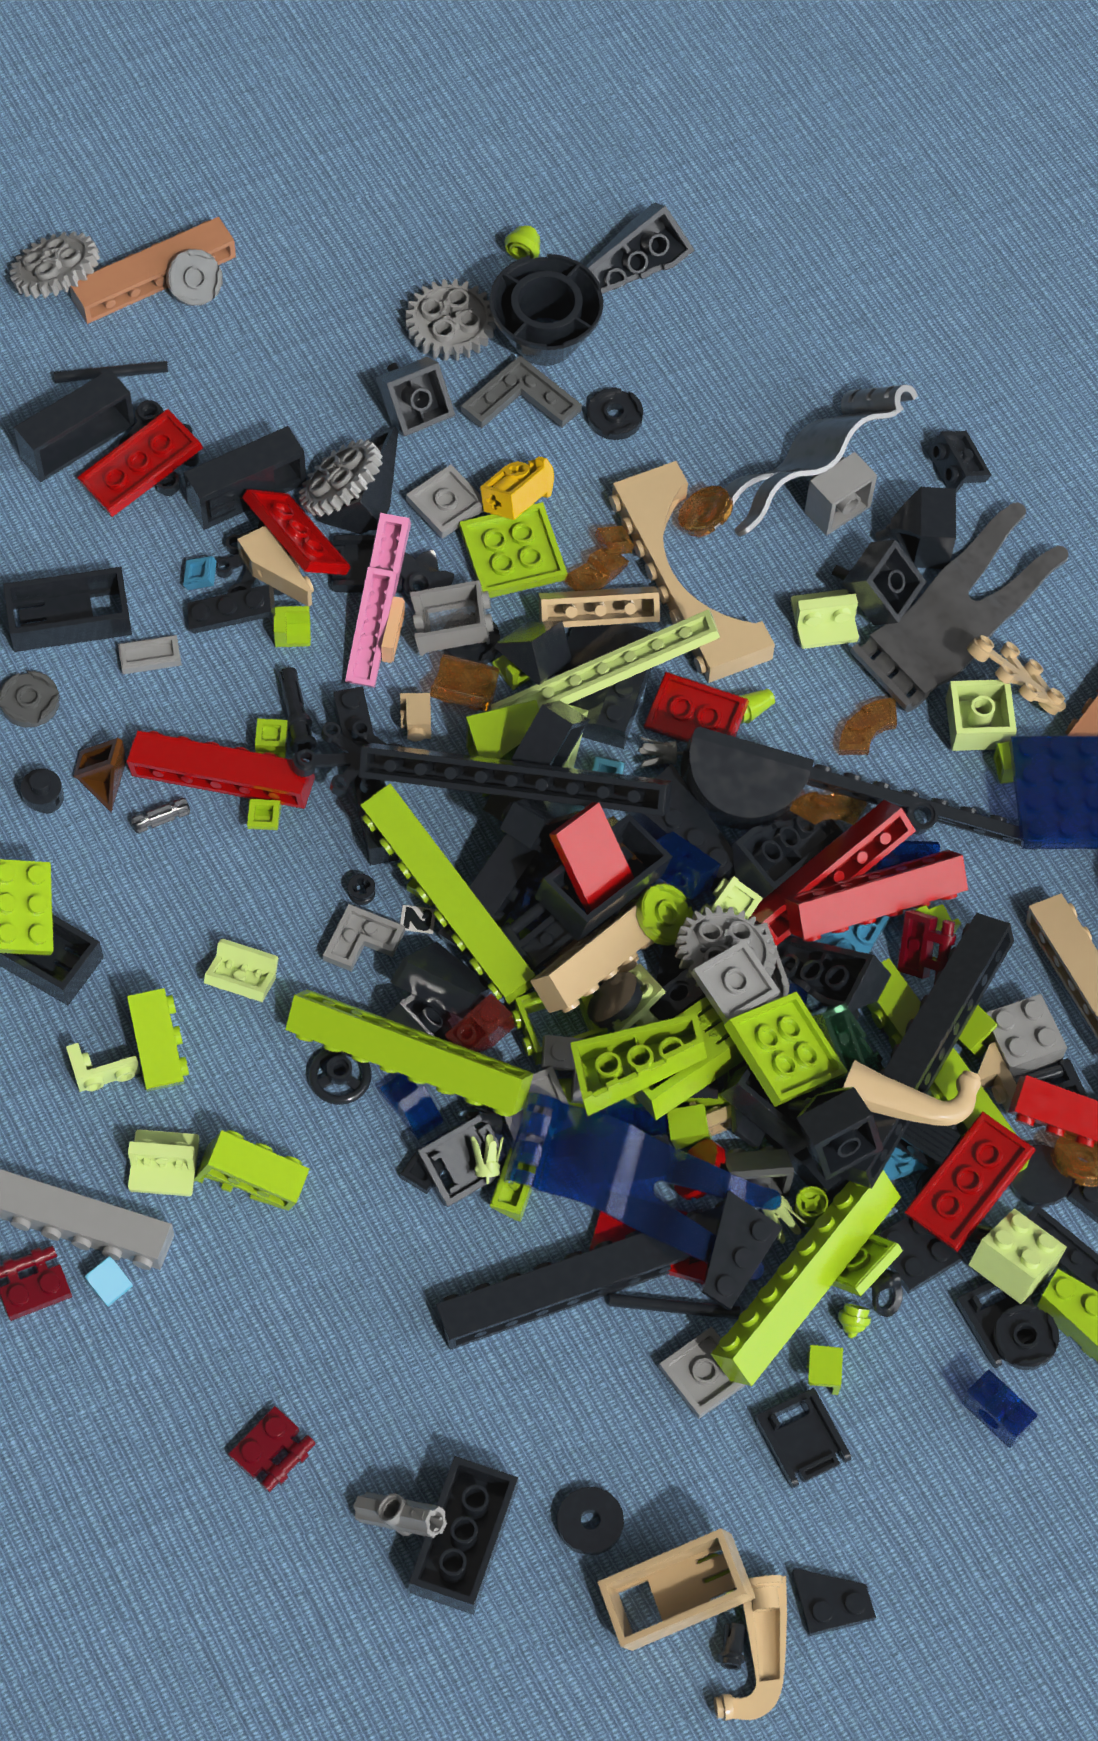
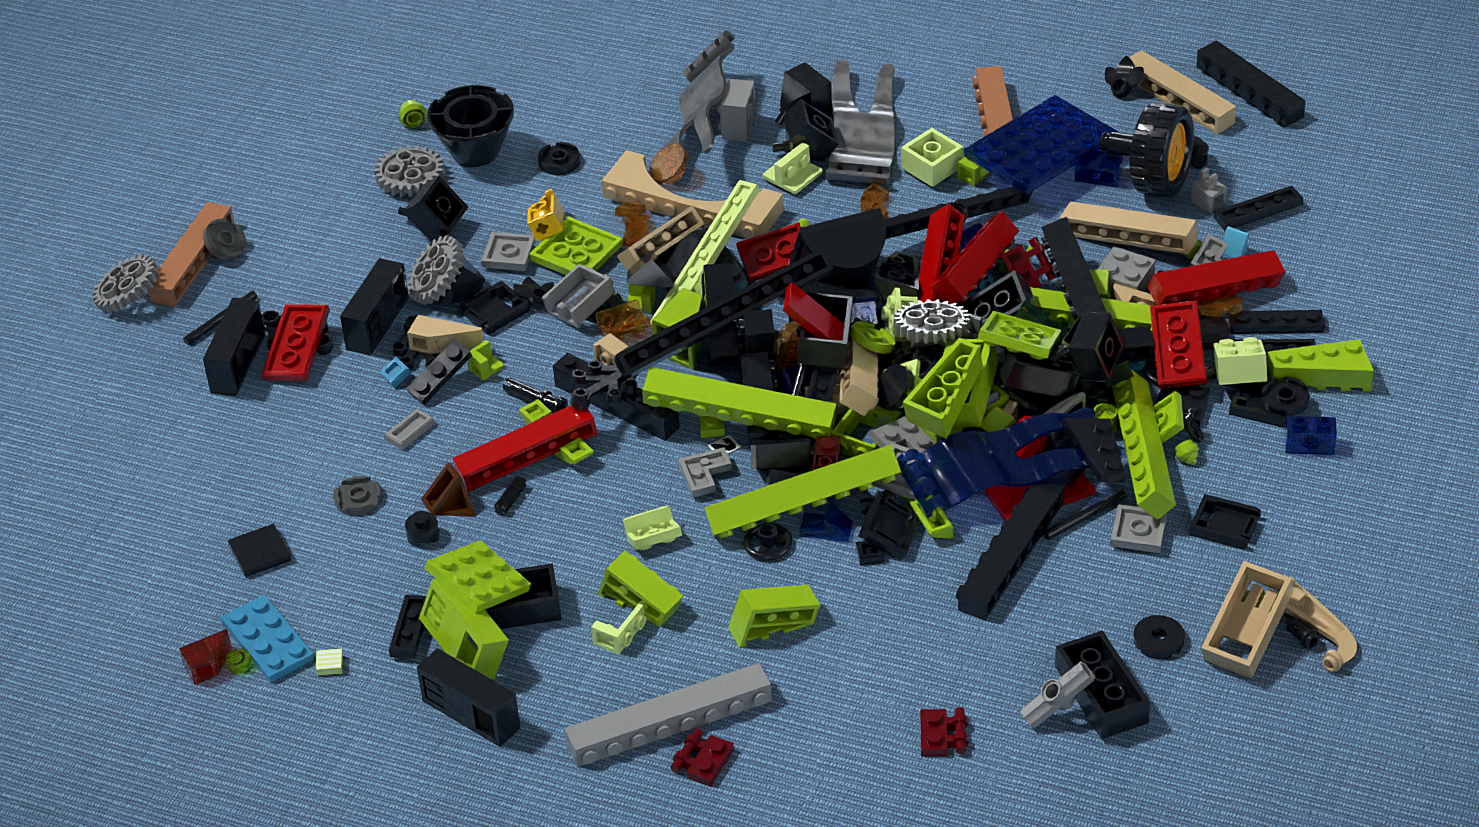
camera: 35 degrees left, 20 degrees down
(65, 609) = (323, 446): black piece -> none
(108, 1281) = (749, 724): medium azure slope -> none
(163, 1162) = (715, 646): yellowish green bracket -> none
(296, 532) = (438, 310): red tile -> none
(367, 881) = (671, 451): black bush -> none
(377, 598) = (523, 312): bright pink slope -> none
(393, 629) = (549, 324): light nougat tile -> none
(489, 1165) = (904, 515): yellowish green piece -> none
(524, 380) = (485, 173): dark grey plate -> none
(640, 249) = (489, 67): black wedge -> none
(735, 981) = (958, 320): light grey plate -> none
(825, 807) = (900, 245): clear orange tile -> none
(825, 1367) = (1200, 477): lime panel -> none
(831, 1602) = (1329, 579): black wing -> none
(900, 1101) = (1120, 315): tan animal -> none
(958, 459) = (776, 63): black bracket -> none
(1013, 672) = (957, 130): tan plant -> none

